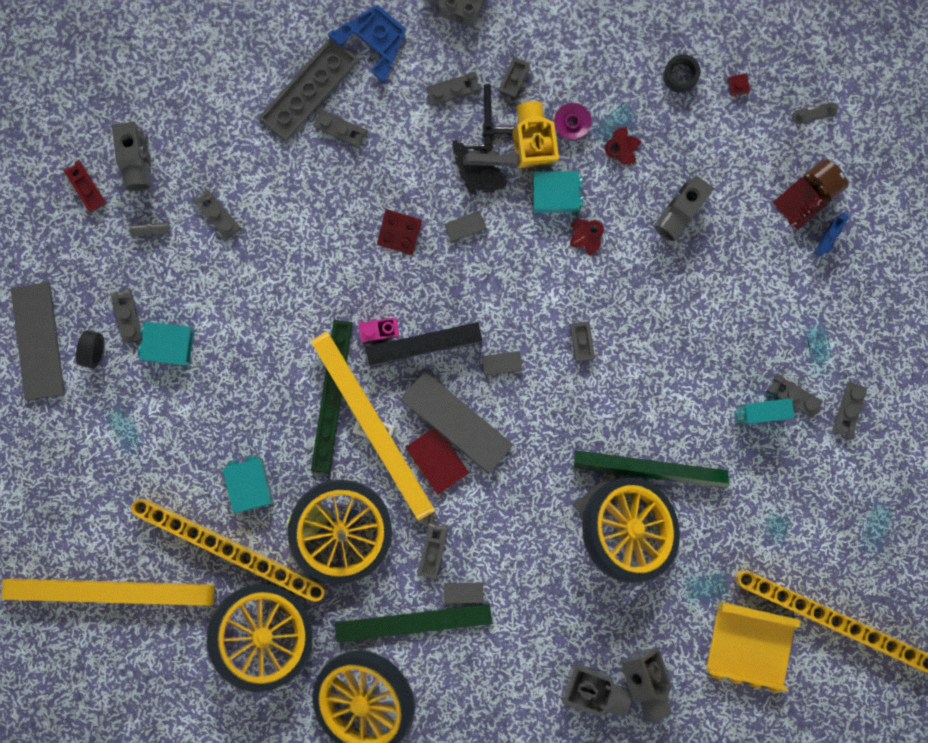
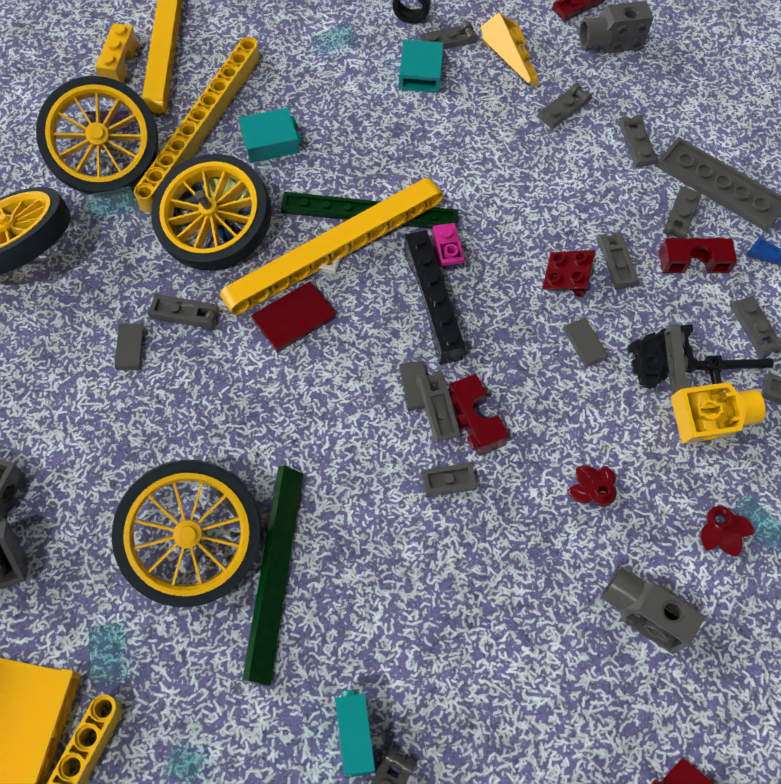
camera: 85 degrees right, 20 degrees down
(140, 261) = (509, 42): none -> yellow wedge
(146, 637) = (119, 45): none -> yellow arch
(149, 229) = (541, 51): dark grey pin -> none
(260, 154) = (637, 141): none -> dark grey plate
(320, 623) = (111, 201): none -> clear light blue tile
(386, 108) = (715, 253): none -> dark red arch
(388, 190) = (618, 260): none -> dark grey plate
(413, 622) = (99, 299): dark green tile -> none
(456, 422) = (337, 335): dark grey tile -> none
(516, 325) = (483, 433): none -> dark red arch
(524, 345) = (438, 406): none -> dark grey plate
(557, 192) = (647, 444): teal brick -> none
(576, 113) = (753, 456): magenta dish -> none

